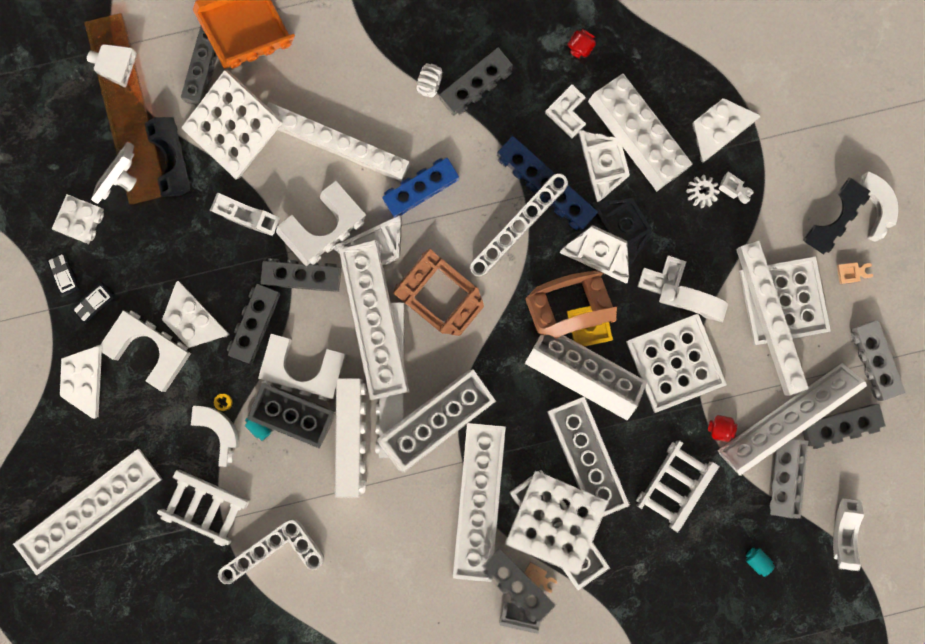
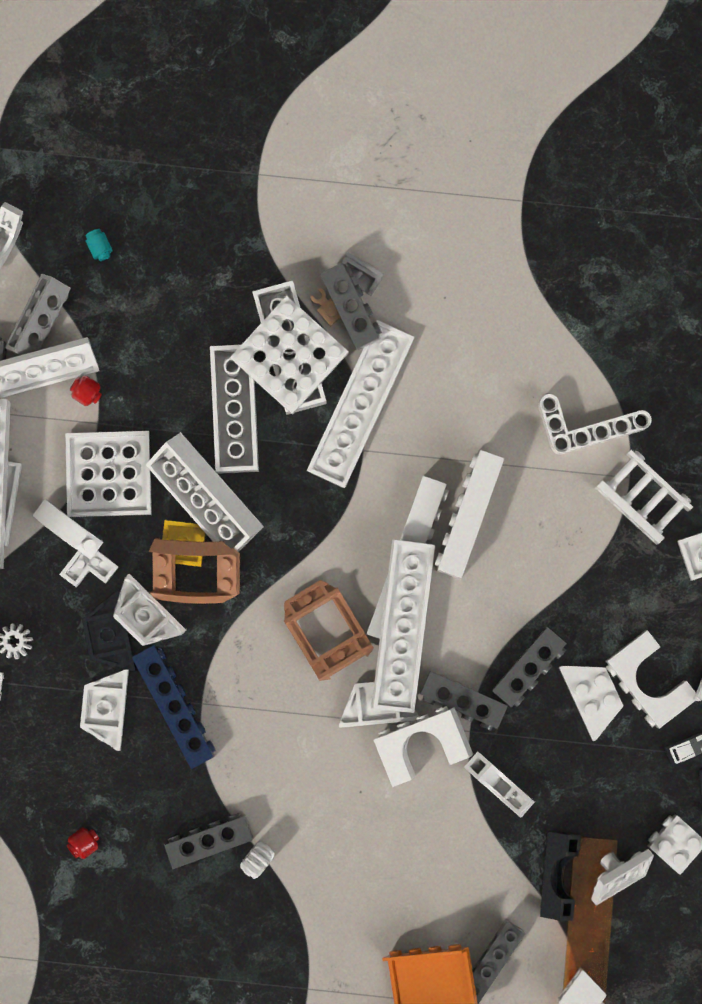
camera: 155 degrees left, 0 degrees up
(217, 404) = (594, 598): yellow bush -> none
(219, 125) = (450, 891): white piece -> none
(222, 426) = (597, 574): white arch -> none
(259, 431) = (560, 560): teal brick -> none
(275, 370) = (523, 609): white arch -> none
(291, 415) = (521, 558): dark grey slope -> none
(341, 144) = (378, 829): white brick -> none
(436, 420) = (375, 500): white brick -> none
(440, 166) = (273, 750): blue brick -> none
(510, 229) = (229, 671): white beam -> none
(562, 111) = (129, 777): white plate -> none
(639, 132) = (57, 726): white brick -> none
(696, 486) = (134, 341): white fence -> none

